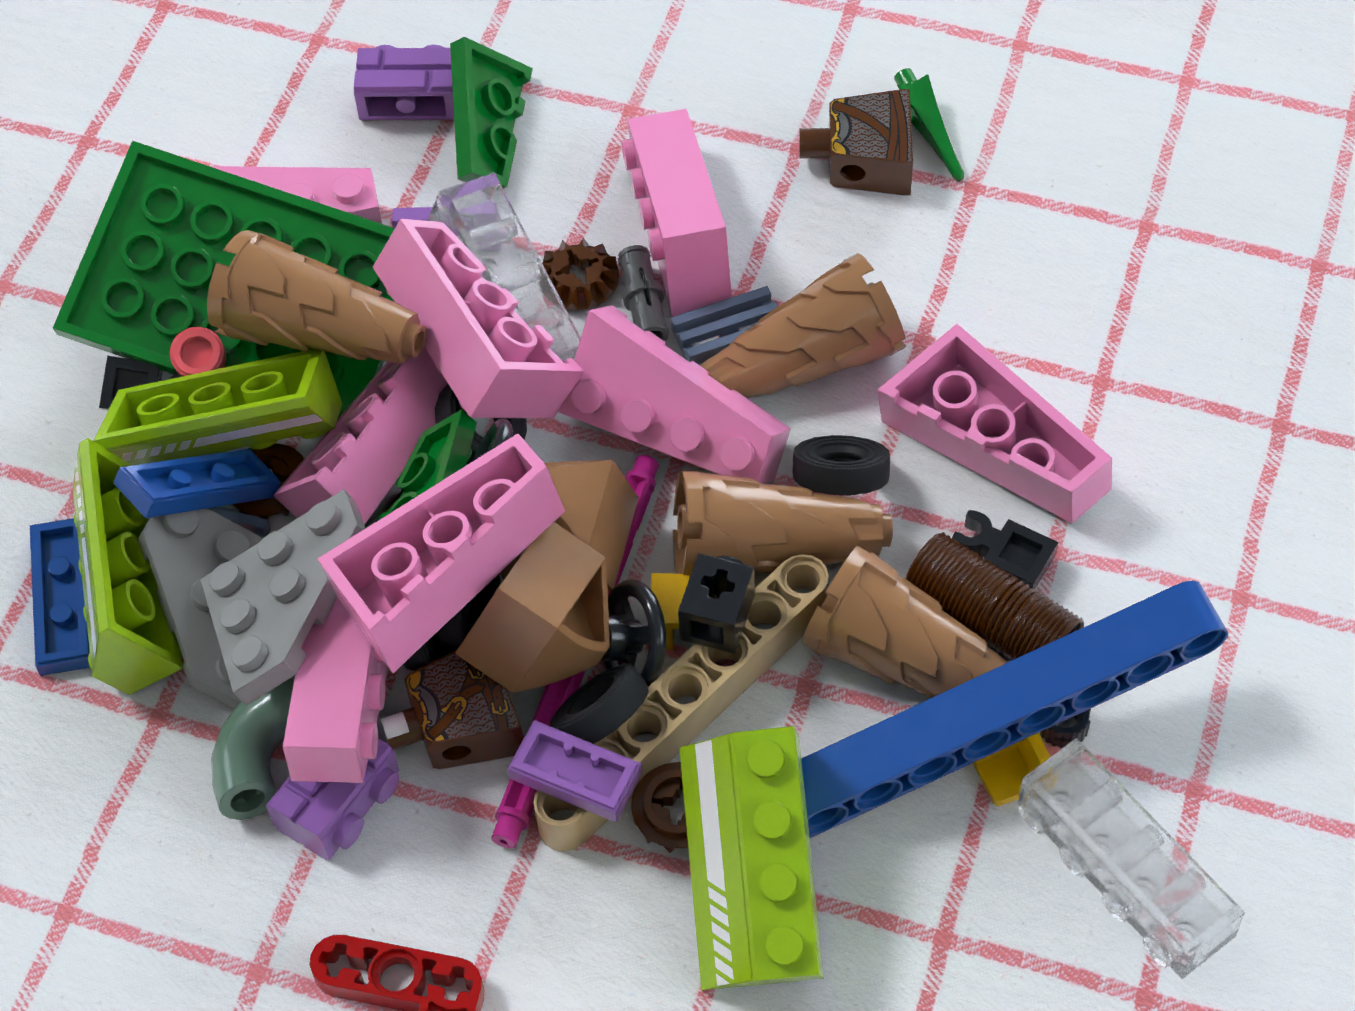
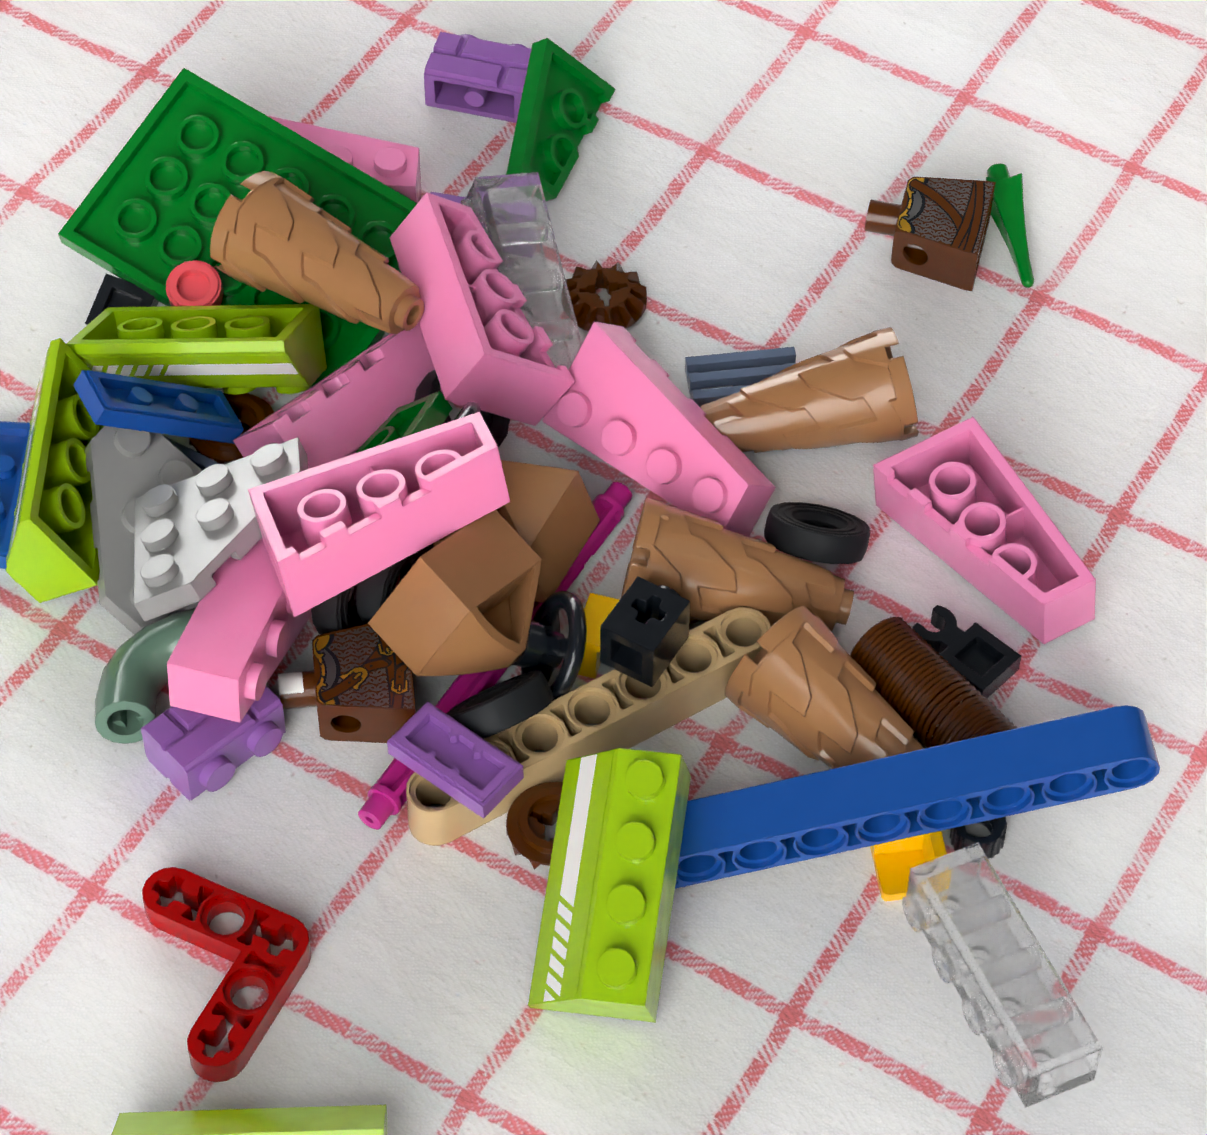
camera: 10 degrees right, 5 degrees down
(641, 291) = (663, 327): dark grey pin -> none
(678, 210) = (721, 252): bright pink wedge -> none

